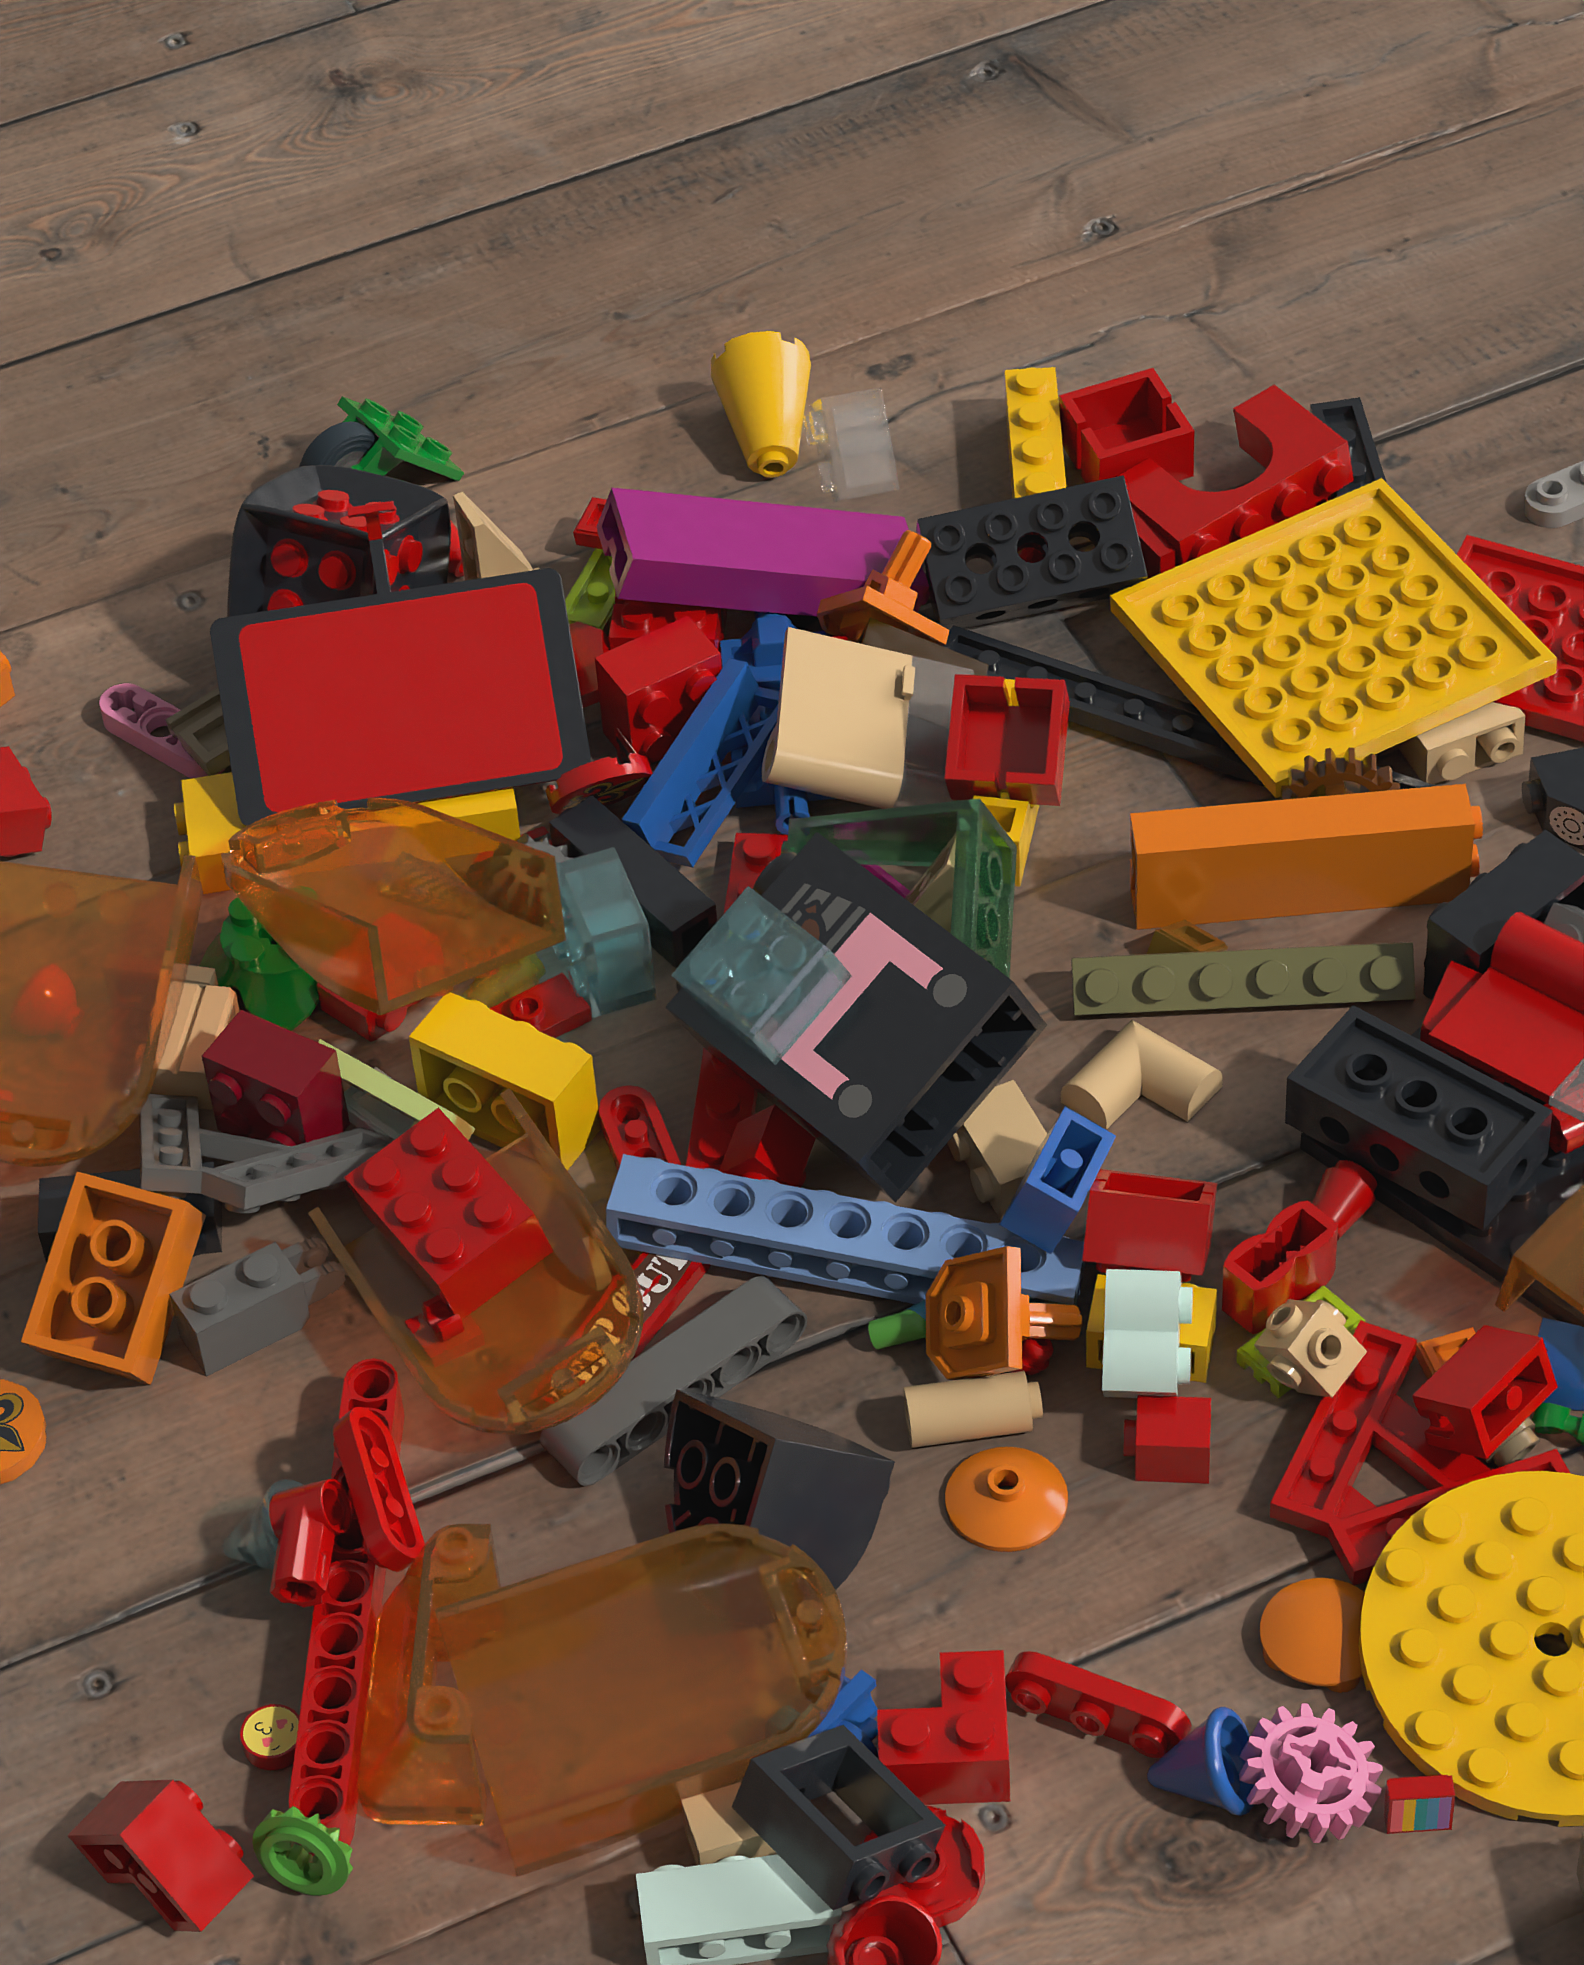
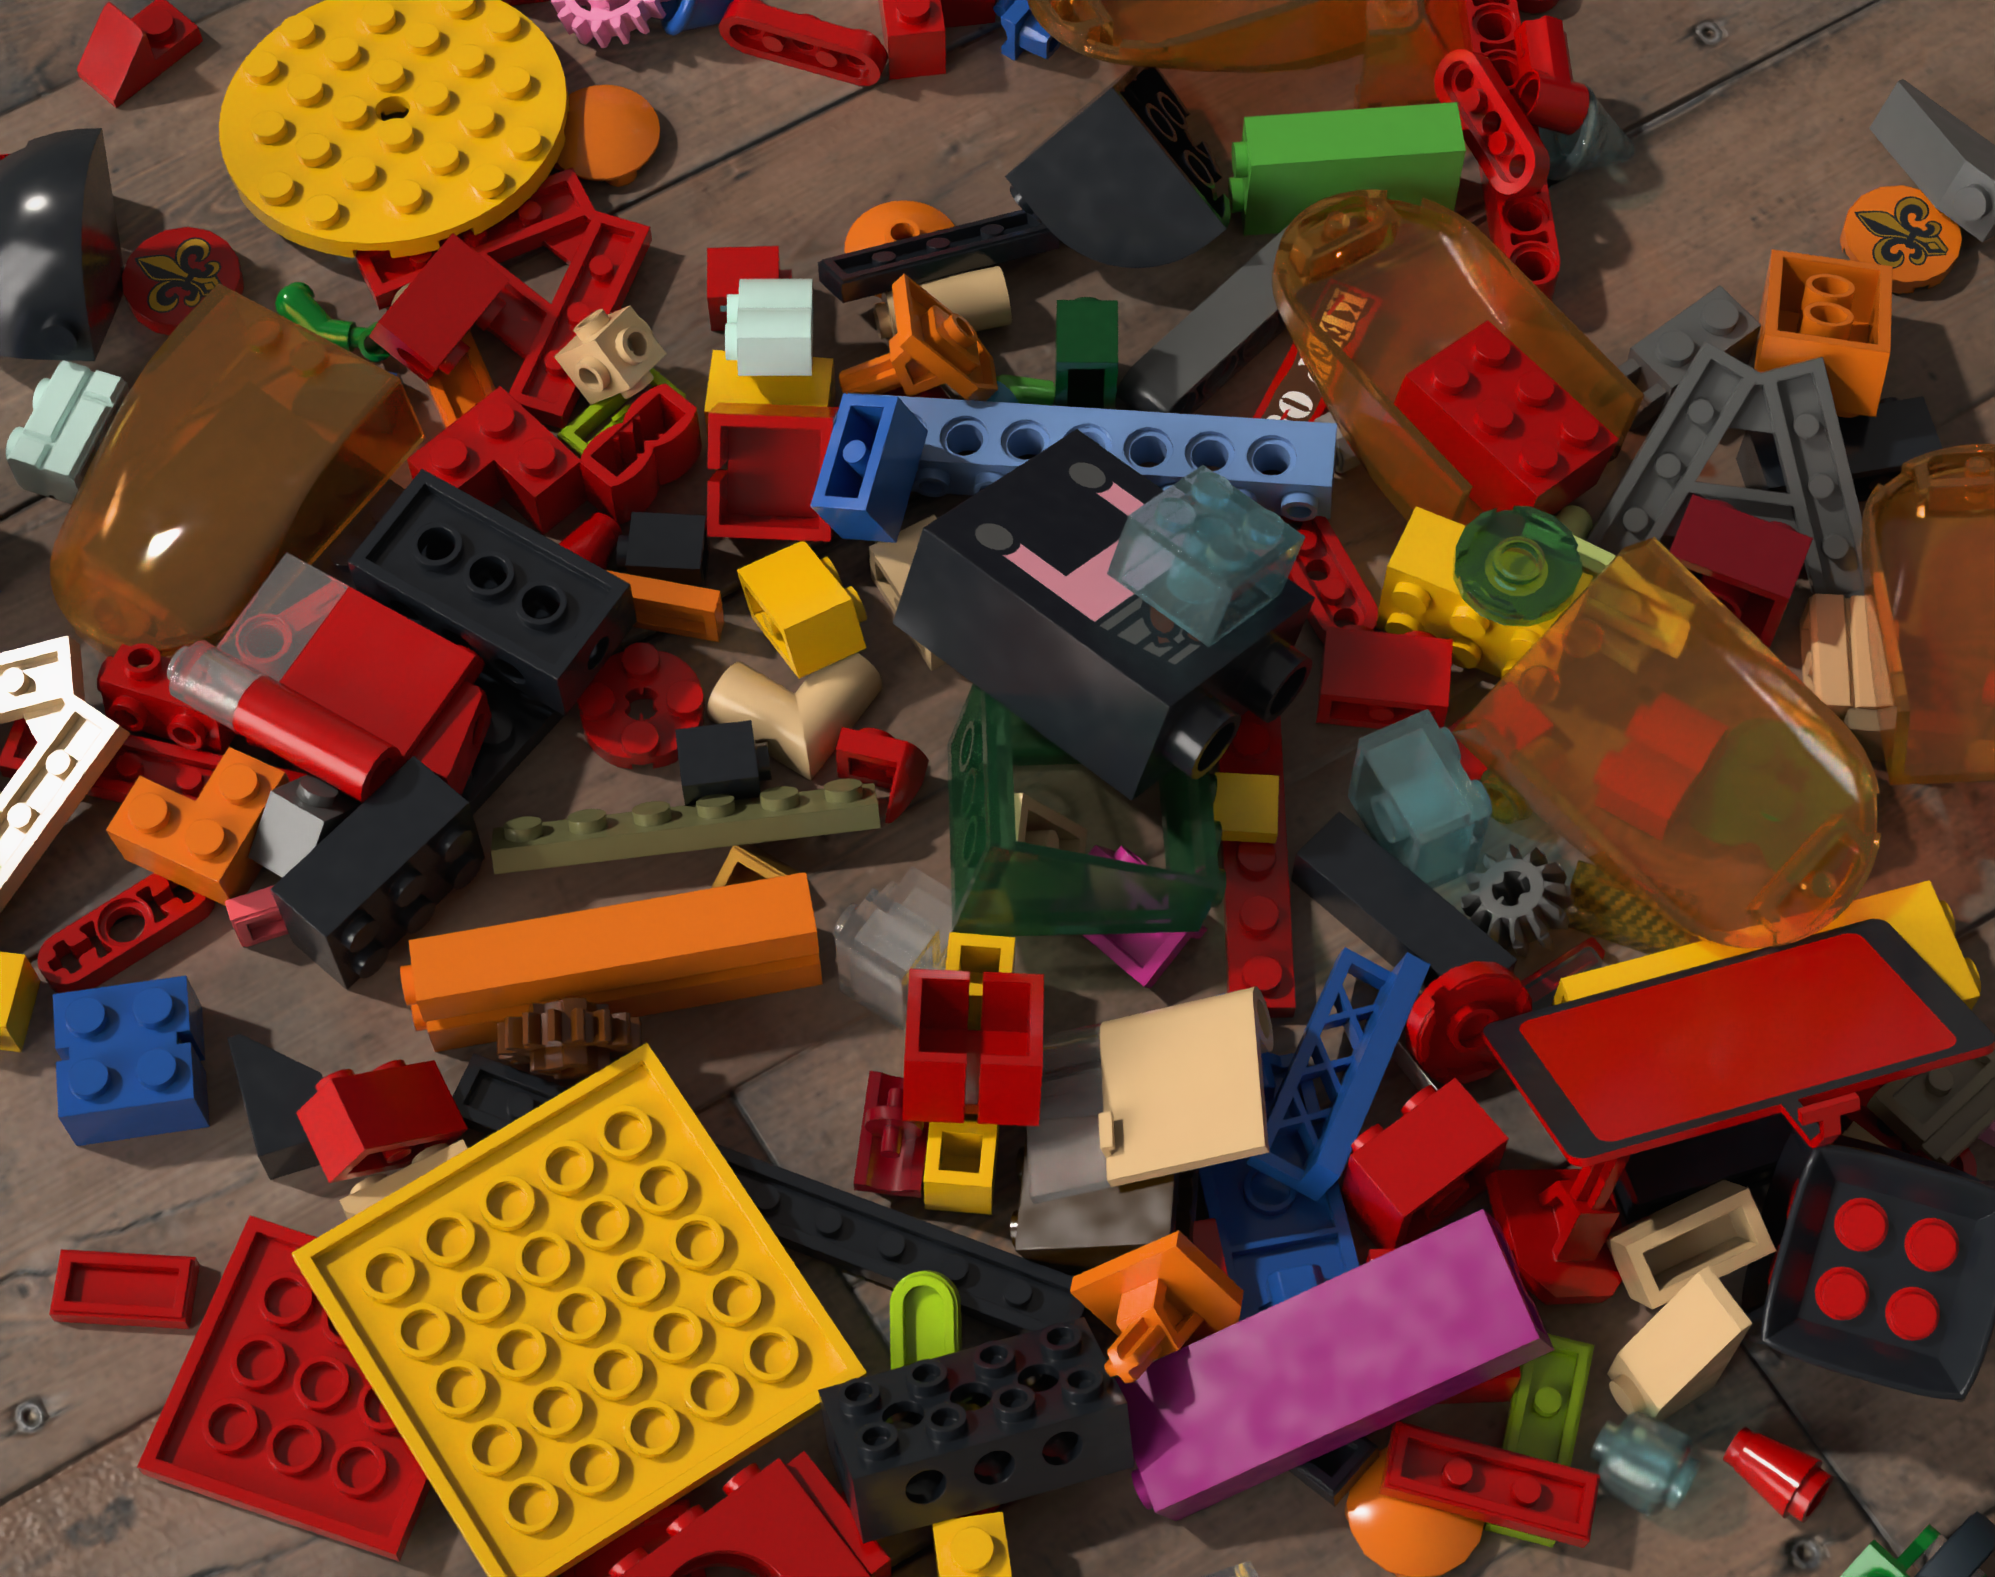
camera: 170 degrees right, 15 degrees up
(476, 1037) = (1517, 566): none -> clear green tile
(539, 1482) = (1312, 155): none -> bright green brick
(541, 537) = (1645, 1463): none -> clear light blue head
(625, 1038) = (1382, 677): none -> red brick
(836, 1309) = (1086, 353): none -> dark green piece
(985, 1438) = (936, 255): none -> black tile
(1063, 636) = (924, 1318): none -> lime tile
(1065, 863) = (888, 936): none -> clear brick
(1070, 1017) = (882, 760): none -> red plate
(1084, 755) = (889, 1149): none -> dark red hips
(1132, 1104) = (803, 608): none -> yellow brick
(1211, 1020) = (721, 761): none -> black brick
(1251, 1078) = (636, 675): none -> red plate
(1254, 1191) = (666, 548): none -> black brick
(1264, 1153) = (676, 607): none -> orange tile
(1418, 1285) = (509, 455): none -> red brick
(1496, 754) = (379, 1118): none -> red brick

